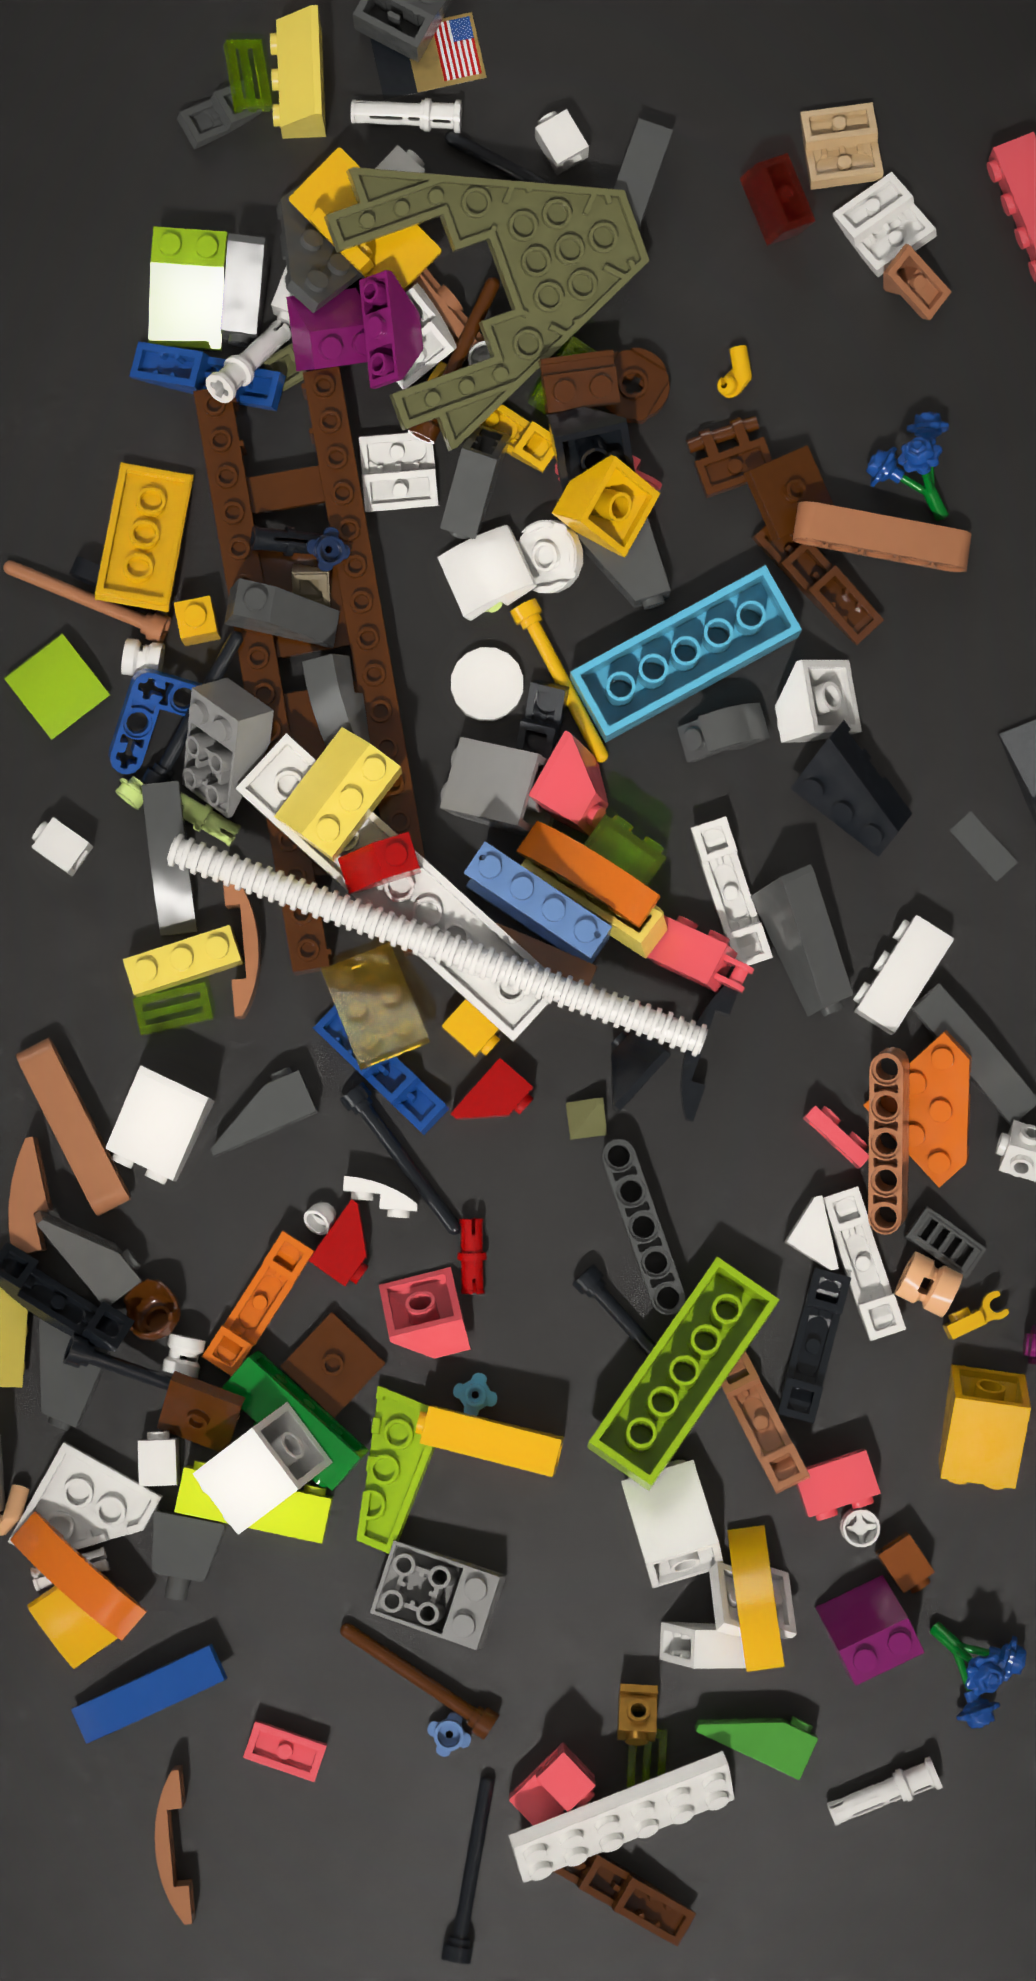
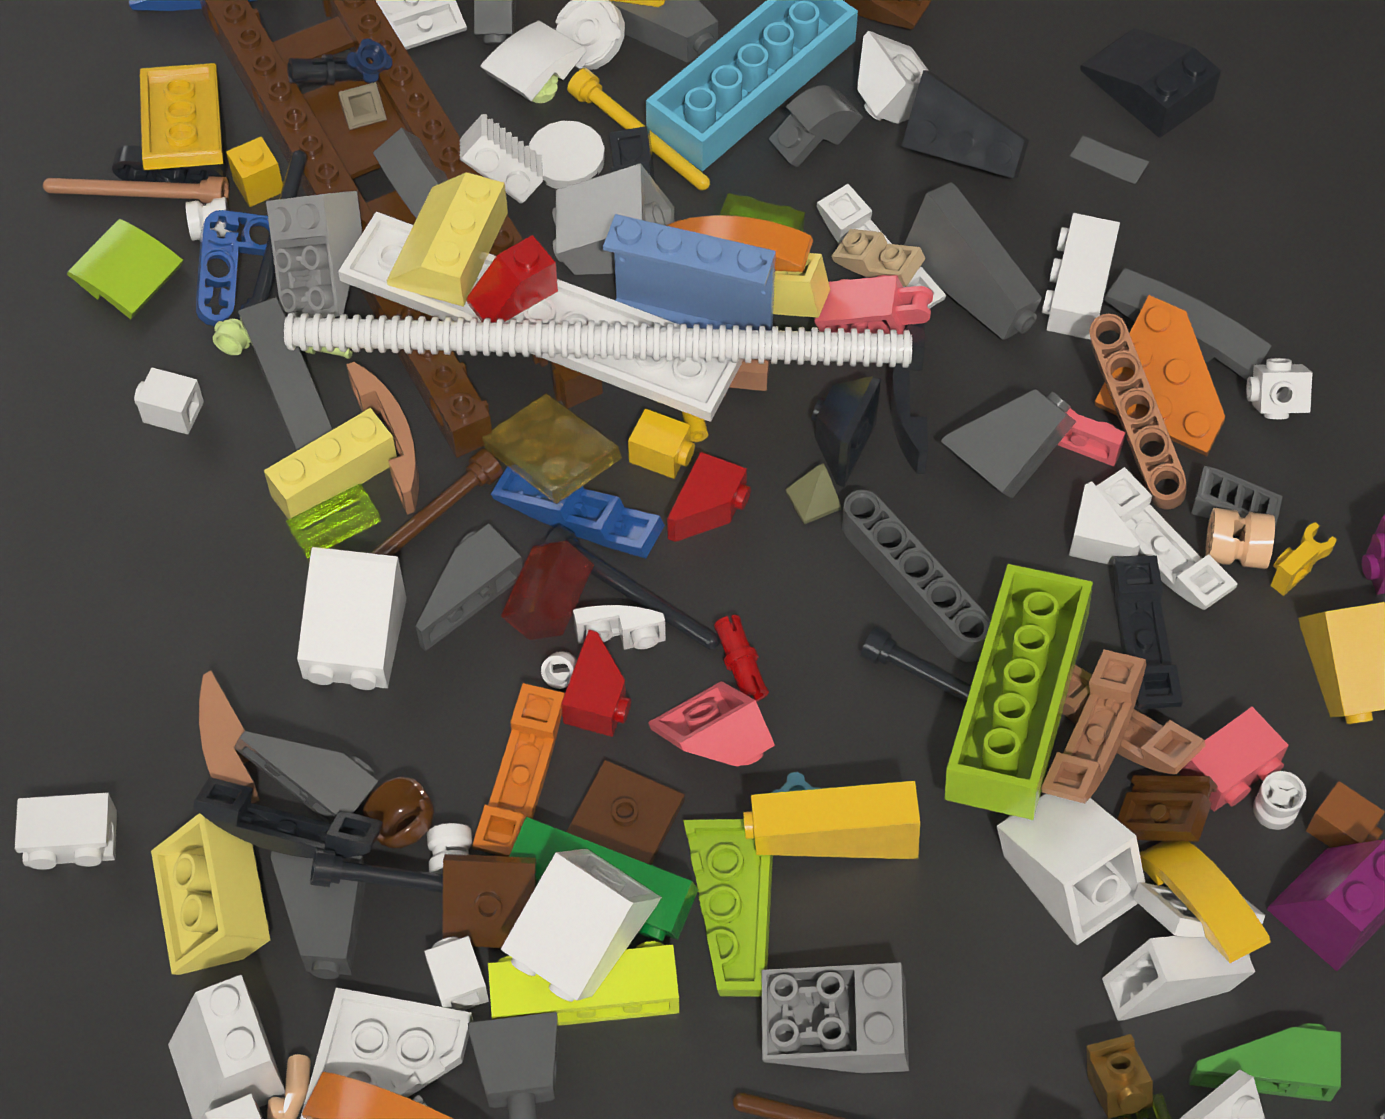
camera: 20 degrees left, 25 degrees down
(73, 1126) = (256, 659): nougat beam -> none
(280, 613) = (332, 120): dark grey slope -> none
(309, 1003) = (481, 470): none -> reddish brown piece
(330, 1146) = (547, 590): none -> clear red brick
(420, 692) = (501, 158): none -> white brick
(572, 786) = (676, 189): coral slope -> none
(726, 901) = (872, 256): none -> tan slope
(731, 1428) = (1099, 728): none -> nougat slope
(762, 1511) = (1167, 807): none -> reddish brown plate
(768, 1131) = (1012, 439): none -> dark grey slope

